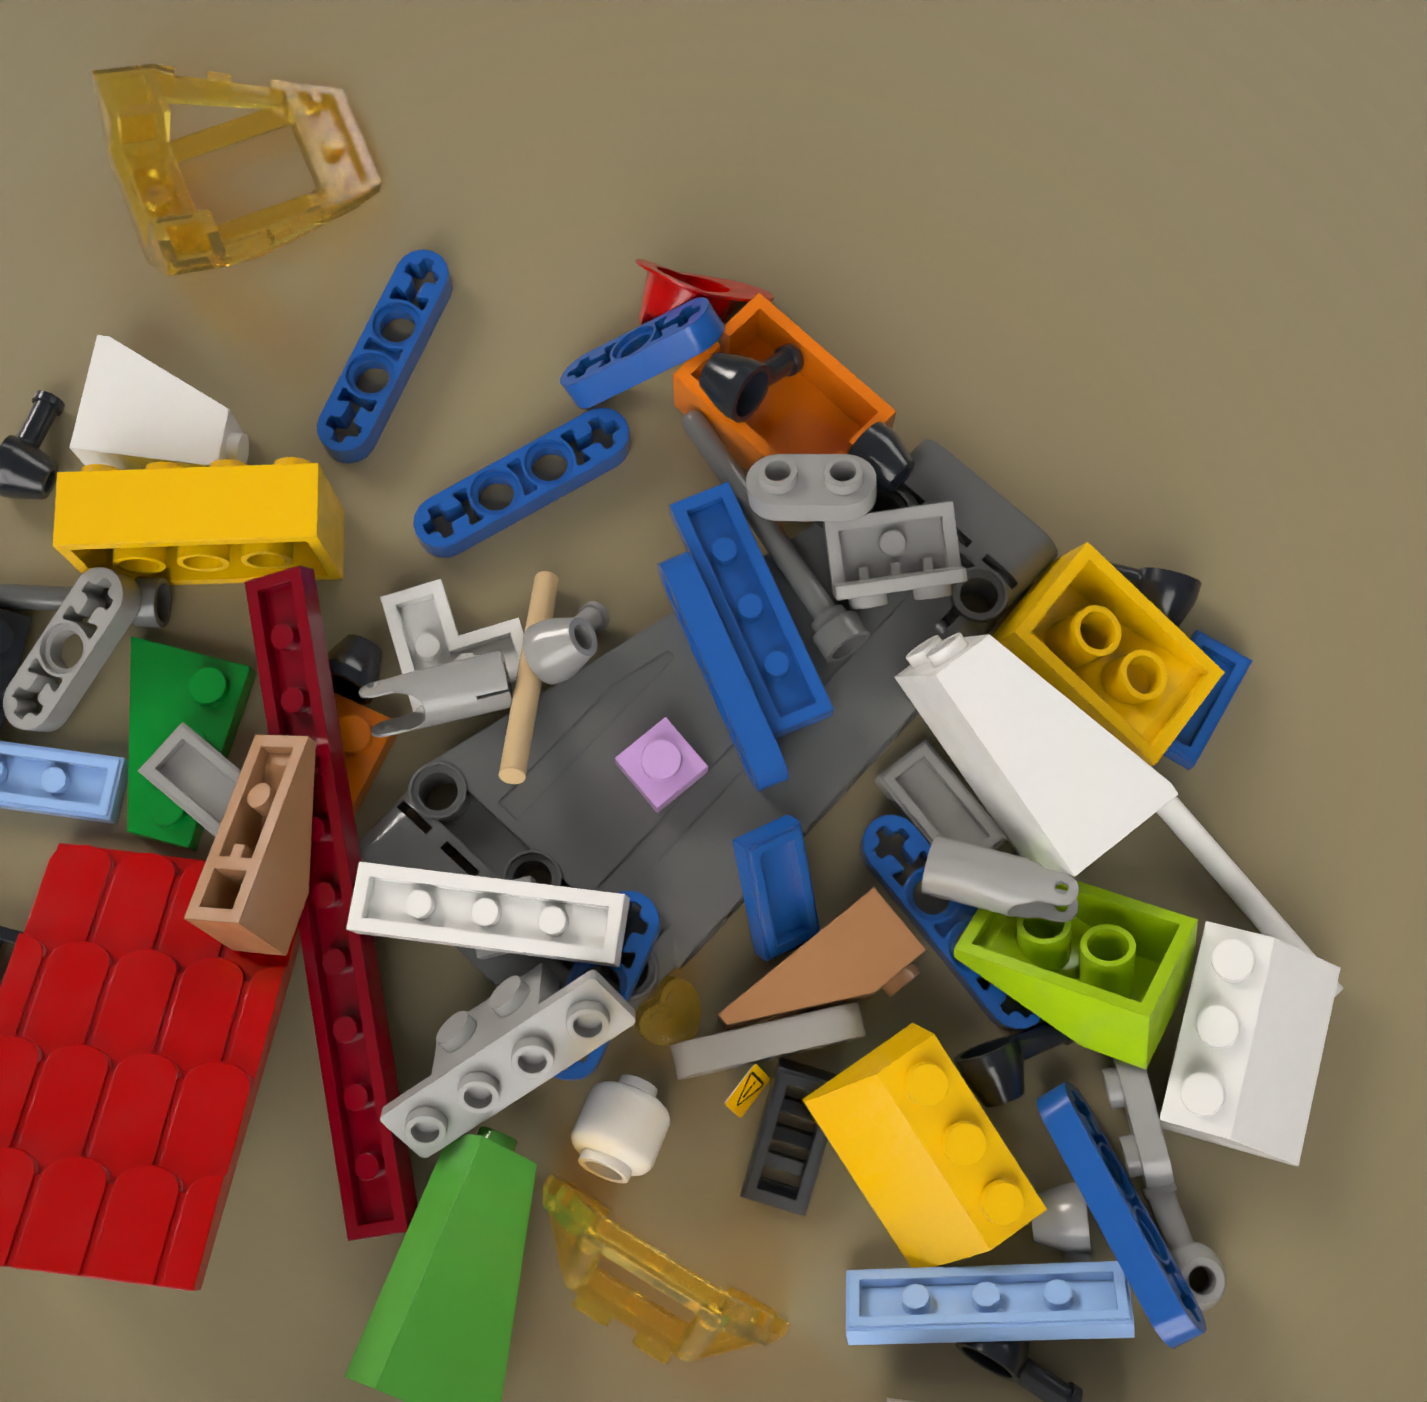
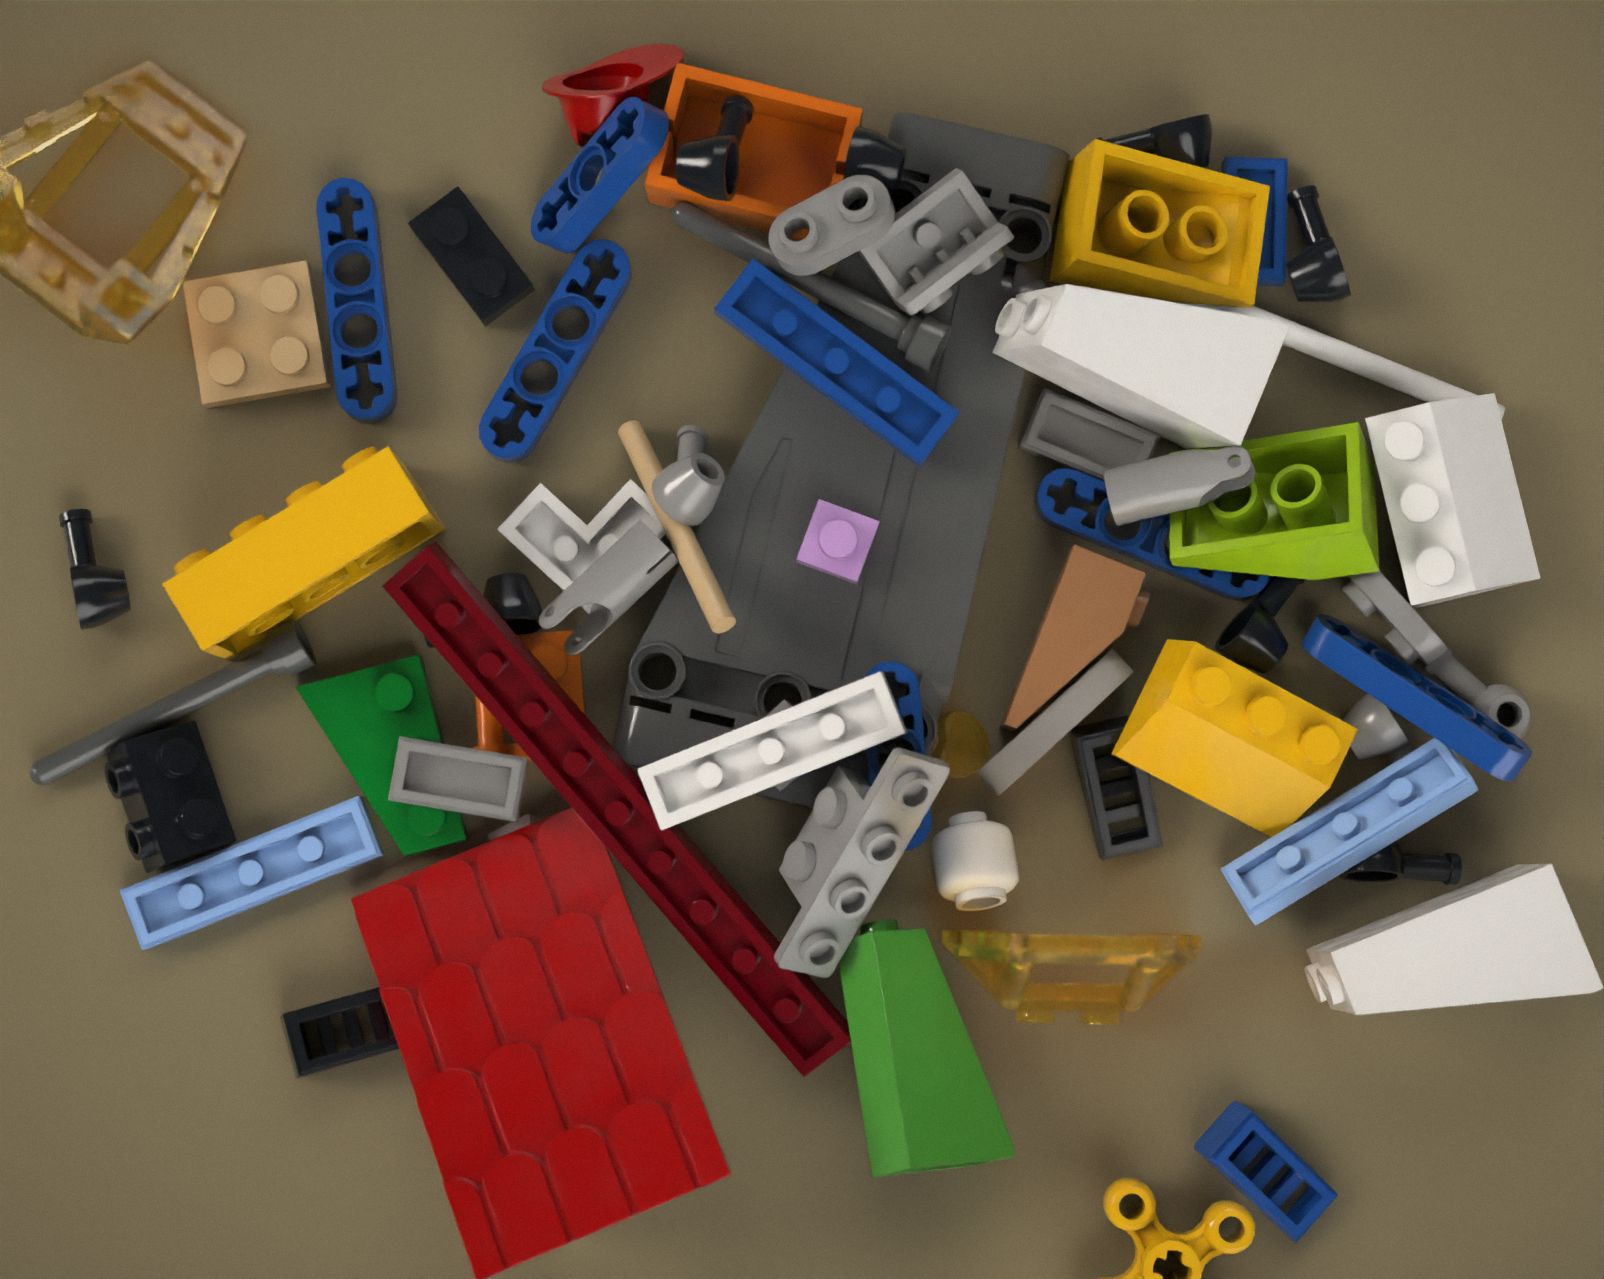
camera: 30 degrees left, 10 degrees up
(46, 656) = (271, 775): light grey beam -> none
(146, 415) = (191, 484): white slope -> none
(262, 851) = (546, 805): medium nougat slope -> none
(288, 338) = (256, 334): none -> tan plate
(501, 371) = (471, 256): none -> black plate
(723, 671) = (844, 431): blue beam -> none
(747, 1091) = (1060, 772): yellow sticker -> none
(776, 887) = (992, 590): blue tile -> none
(1230, 770) = (1317, 270): none -> black bar

